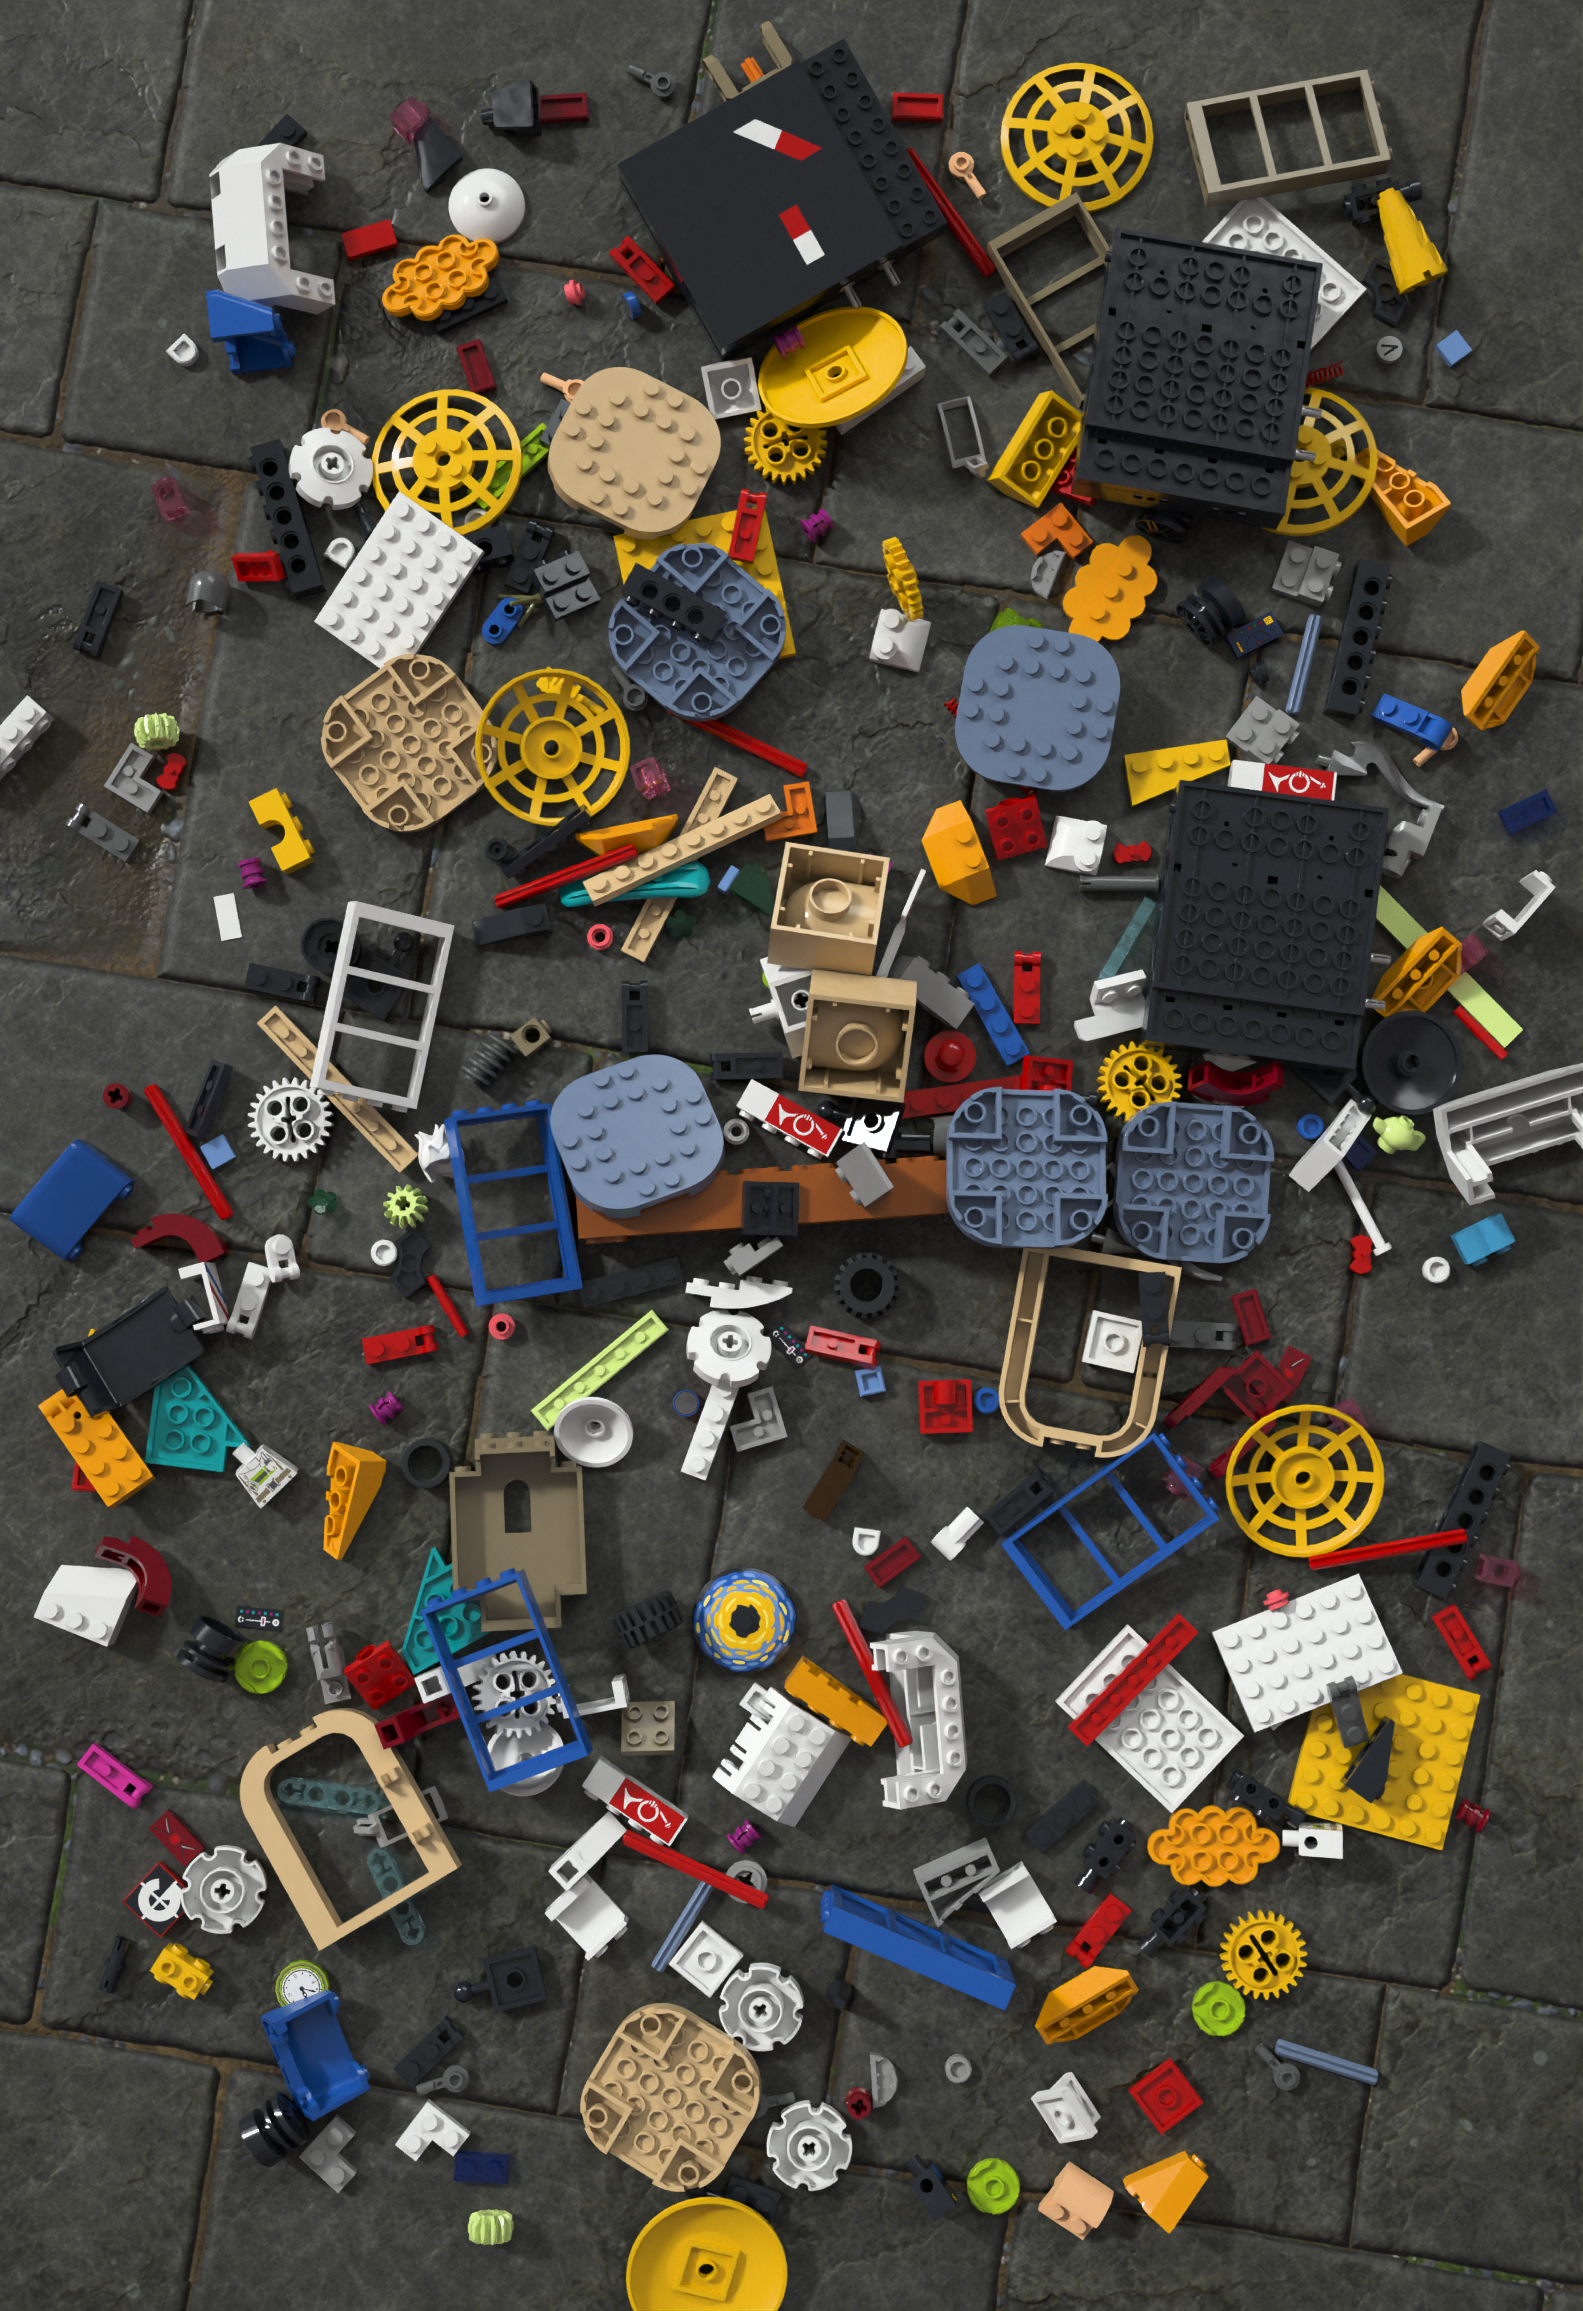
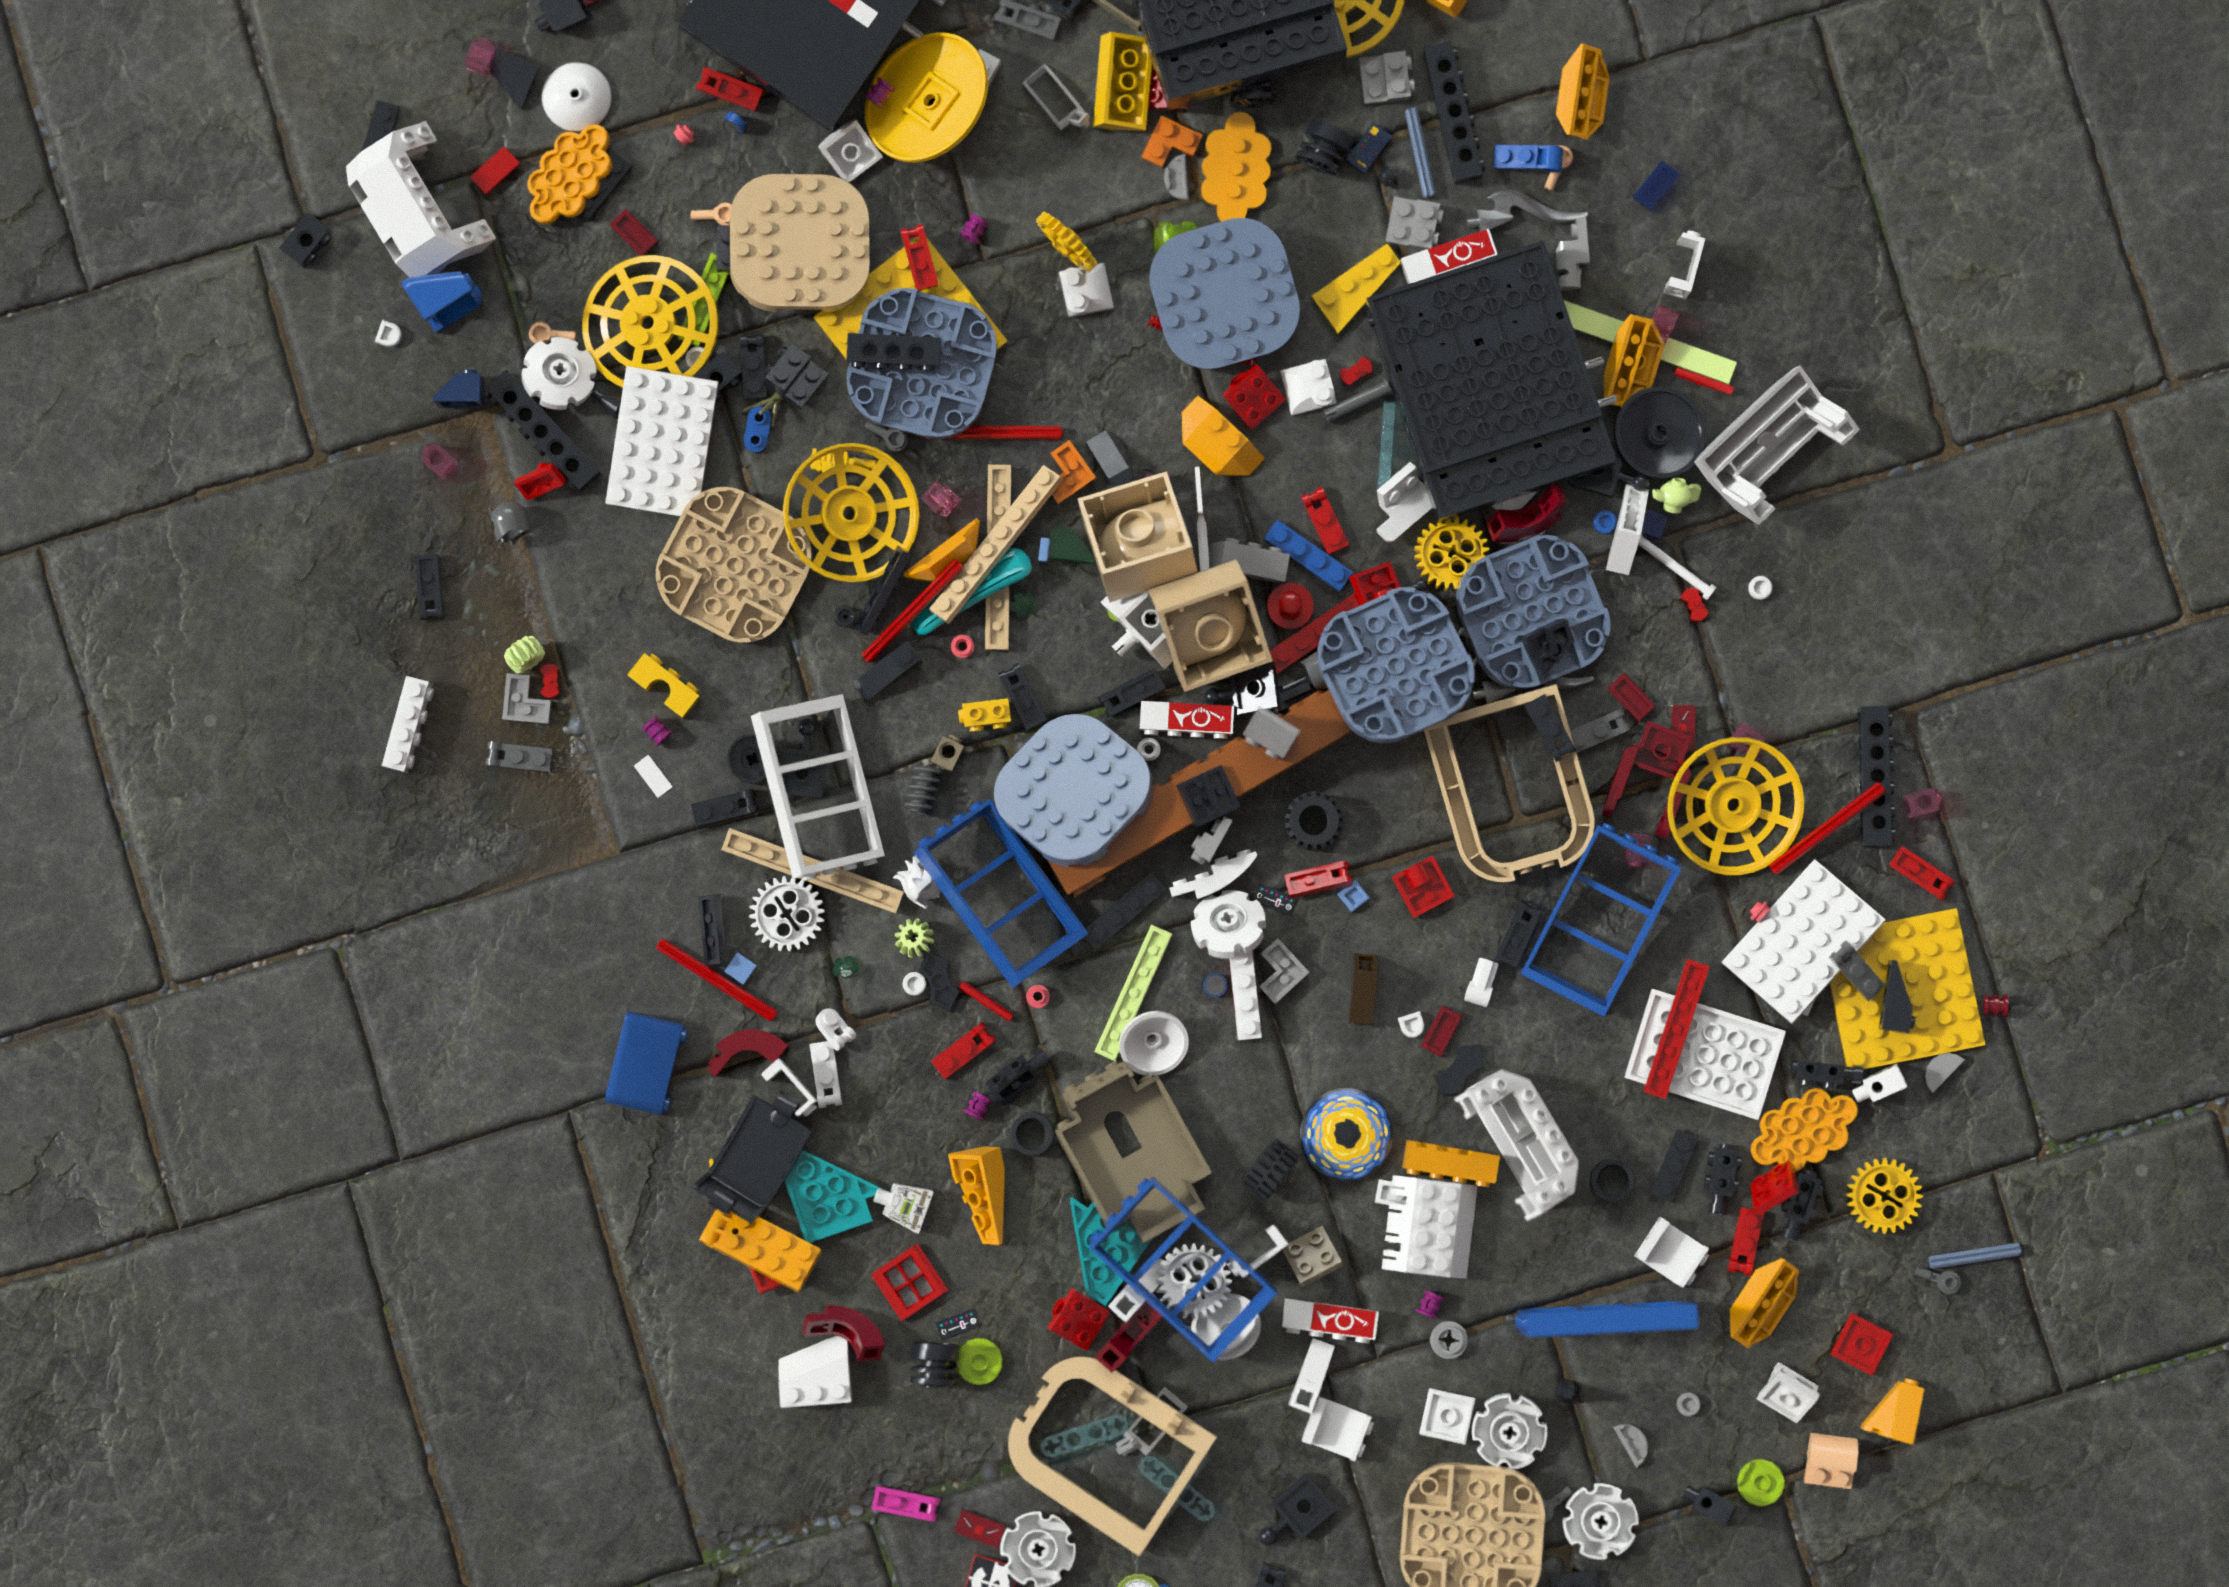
camera: 30 degrees left, 0 degrees up
(109, 1093) = (633, 957): dark red bush -> none
(134, 214) = (306, 227): none -> black brick
(225, 439) = (462, 390): none -> dark blue slope
(230, 1552) = (909, 1282): none -> red piece
(329, 1663) = (1033, 1331): light grey plate -> none
(341, 552) = (598, 437): white tile -> none
(439, 1398) = (1016, 1077): none -> black brick
(588, 1015) = (985, 713): none -> yellow brick
(682, 1926) = (1416, 1397): sand blue axle -> none
(695, 1869) = (1403, 1348): red axle -> none
(790, 465) = (928, 189): yellow gear -> none
(852, 2098) = (1616, 1465): dark red bush -> none
(873, 1677) = (1468, 1125): red axle -> none
(956, 1877) = (1612, 1254): light grey wedge -> none
(986, 1400) = (1453, 866): blue tile -> none
(1112, 1341) = (1531, 770): white plate -> none
(1154, 1893) = (1774, 1187): none -> red plate
(1192, 1222) = (1547, 645): none -> black slope
(1218, 2008) = (1870, 1256): lime tile -> none
(1382, 1852) = (1940, 1069): none -> light grey tile
(1483, 1239) = (1784, 545): dark azure brick -> none

